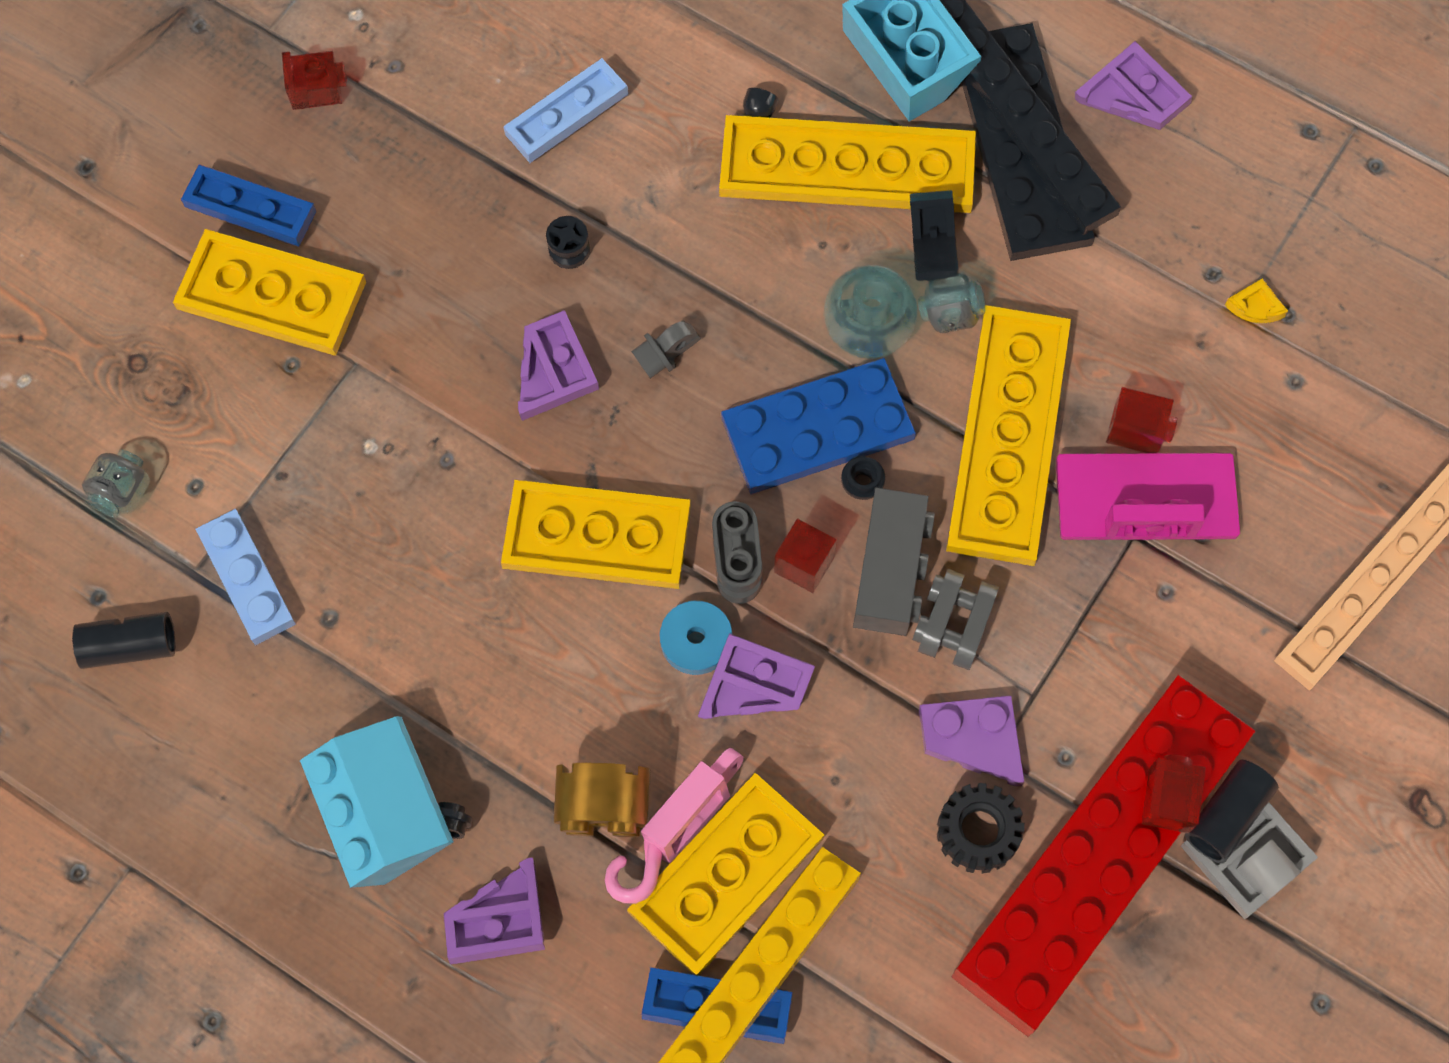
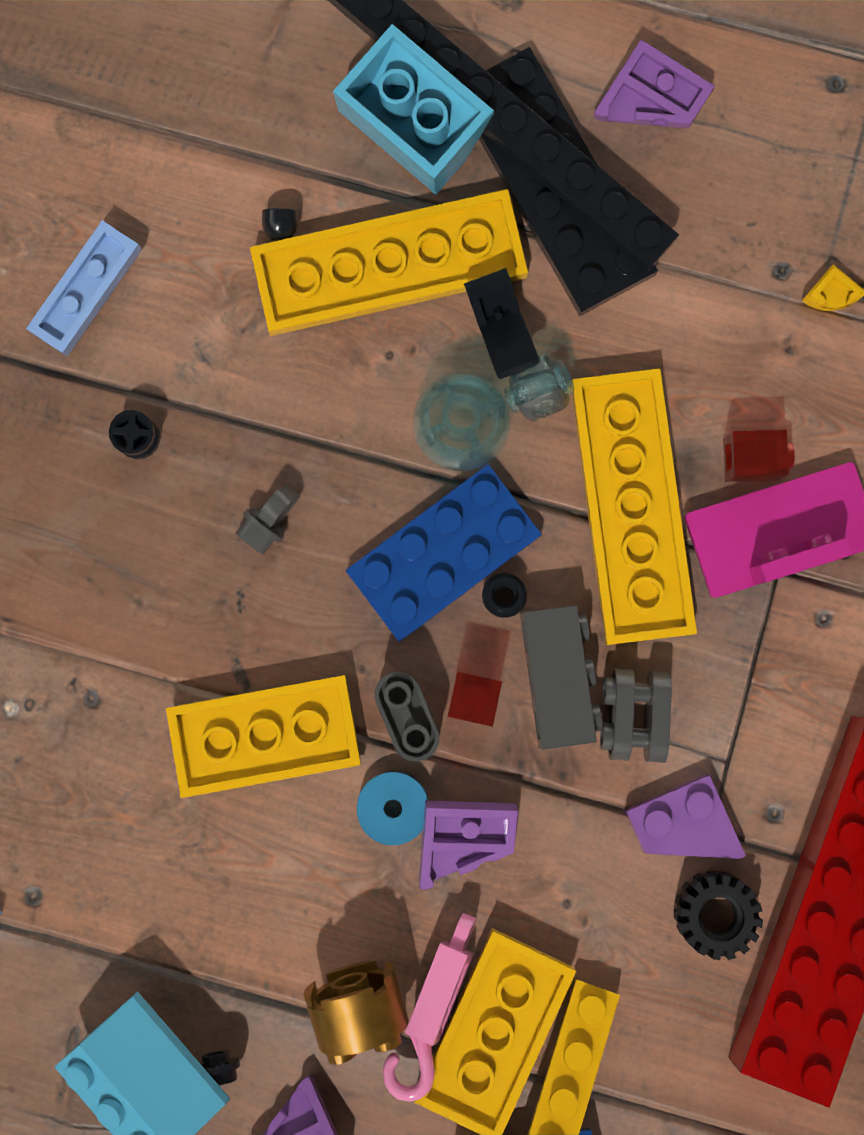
camera: 20 degrees left, 15 degrees up
(552, 366) = (163, 573): medium lavender wing -> none

